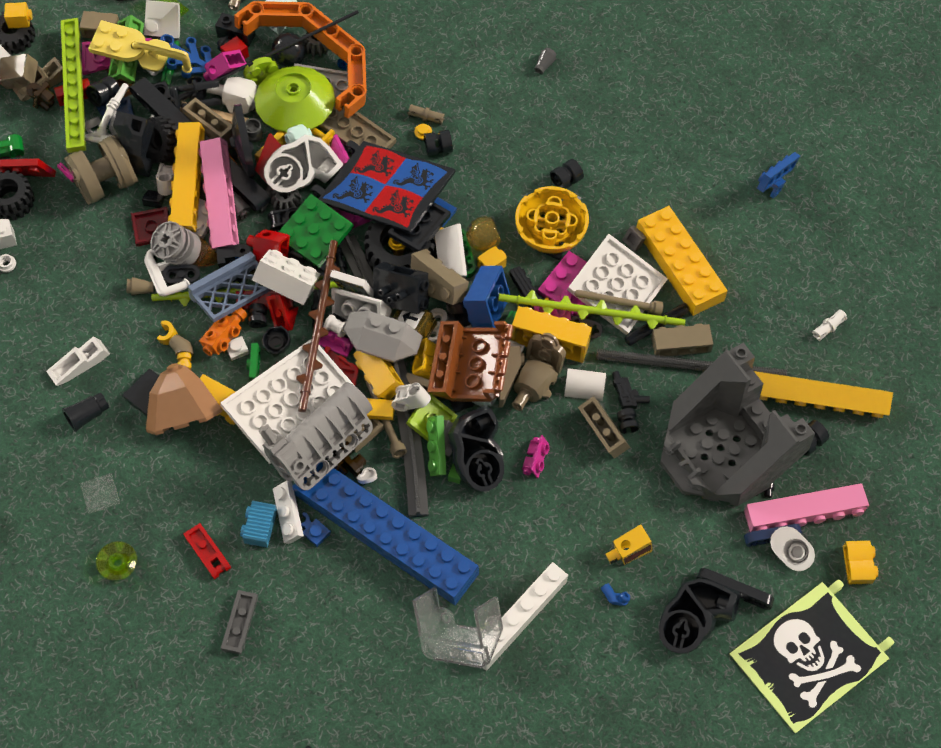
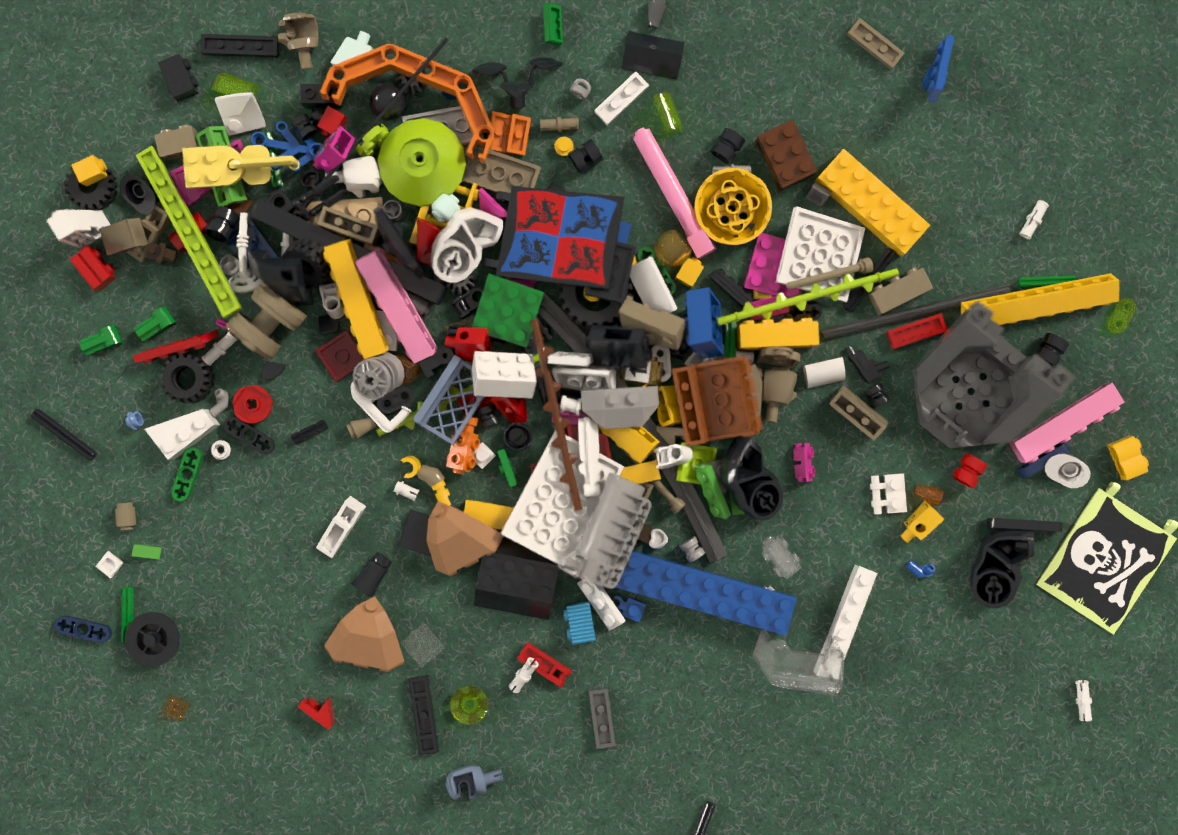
camera: 20 degrees left, 25 degrees up
(28, 227) = (222, 402): none -> light grey arm
(37, 253) = (234, 432): none -> black beam
(47, 47) = (138, 193): none -> black piece
(49, 184) = (219, 348): none -> white pin
(50, 461) = (366, 638): none -> medium nougat brick
(57, 245) = (252, 393): none -> red plate
(68, 556) = (423, 714): none -> black plate
(84, 628) = (476, 782): none -> sand blue piece
(86, 216) = (272, 370): none -> black tile
(93, 275) = (309, 431): none -> black axle
(150, 349) = (405, 490): none -> white pin
(181, 550) = (523, 675): none -> white pin
(209, 45) = (304, 127): none -> black wheel
(215, 462) = (516, 581): none -> black slope
(332, 369) = (589, 455): none -> white piece
(380, 107) = (510, 133): none -> orange slope
(396, 494) = (692, 549): none -> light grey wheel
(399, 79) = (518, 89): none -> black plant
(453, 41) = (552, 24): none -> green plate
(454, 95) = (578, 90): none -> light grey tile
(479, 530) = (776, 551): none -> clear brick
(488, 112) = (621, 98): none -> white plate
(511, 239) = (673, 192): none -> bright pink brick
(524, 134) = (667, 113): none -> clear neon green brick
(528, 91) = (652, 55): none -> black slope
(614, 516) = (894, 493): none -> white plate
(616, 198) = (786, 155): none -> reddish brown brick
(650, 526) = (930, 494): none -> clear orange cone
(676, 379) = (916, 331): none -> red plate
(697, 516) = (969, 471): none -> red wheel
(728, 142) = (875, 43): none -> dark tan plate
(807, 374) = (1035, 282): none -> green axle
(890, 433) = (1122, 315): none -> clear neon green plate

